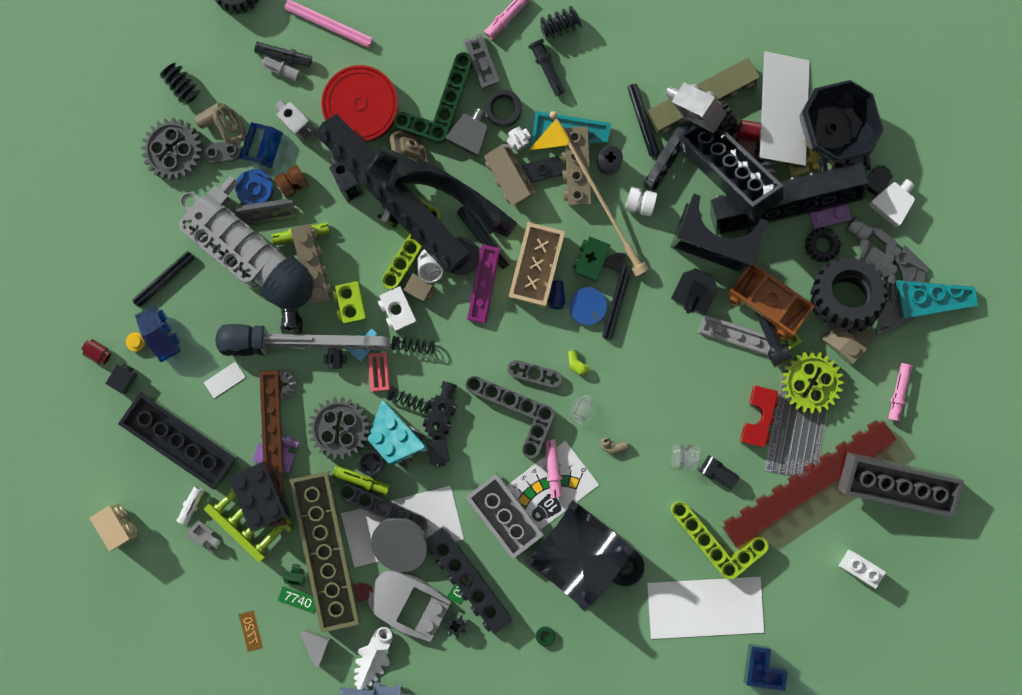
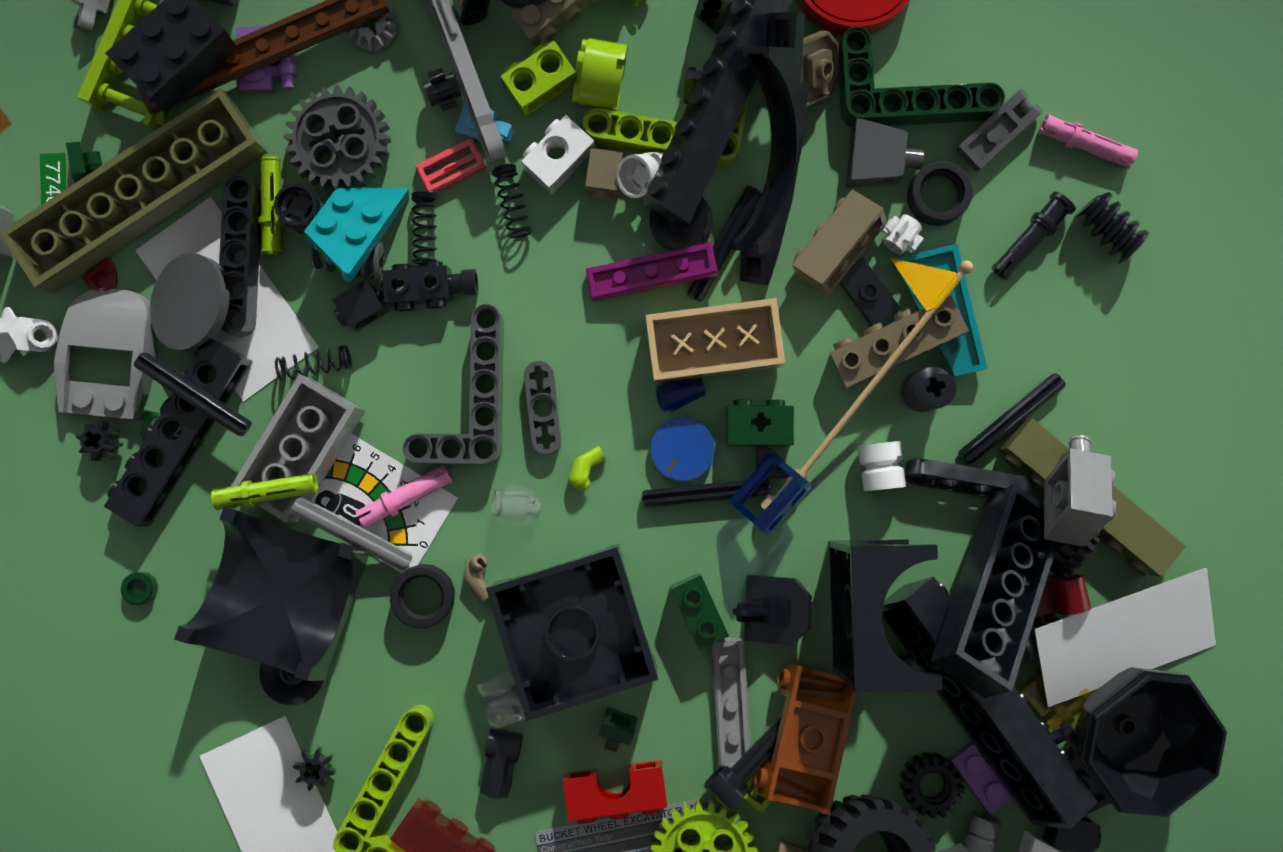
camera: 65 degrees right, 0 degrees up
(364, 268) = (600, 74): none -> lime brick
(452, 560) = (192, 394): none -> black axle
(456, 486) = (344, 359): none -> black piece
(523, 539) = (252, 493): none -> lime pin
(562, 504) = (350, 533): none -> light grey axle
(626, 480) = (397, 596): none -> black tyre
(640, 264) = (781, 505): none -> clear blue tile
(664, 402) = (572, 633): none -> black piece
(679, 332) = (699, 611): none -> dark green brick
(680, 580) = (312, 779): none -> black gear
(725, 402) = (617, 728): none -> dark green tile

